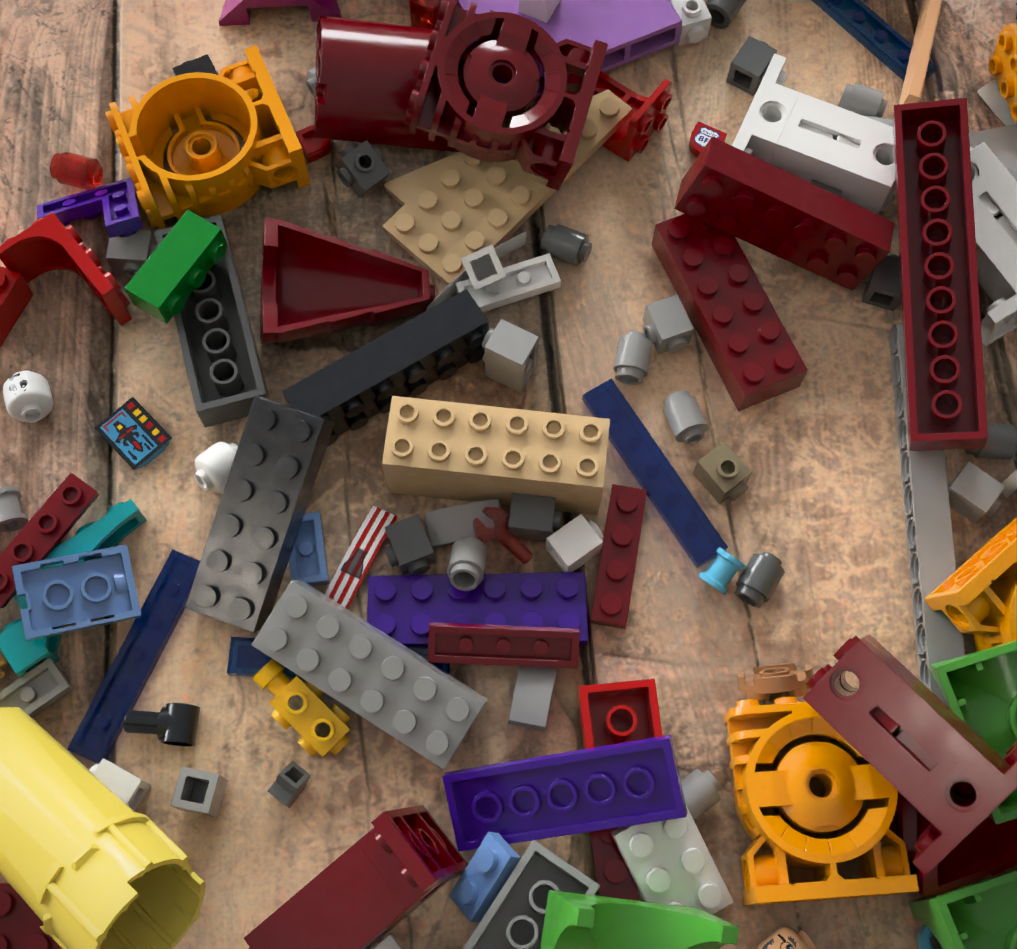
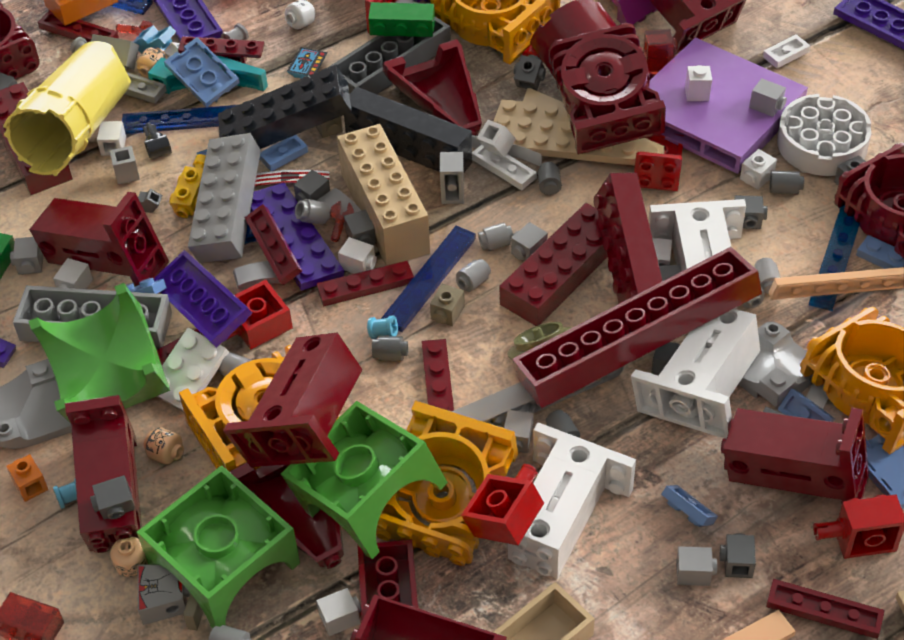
camera: 65 degrees right, 20 degrees down
(837, 546) = (437, 374): none -> dark red plate
(858, 395) = (535, 337): none -> olive piece

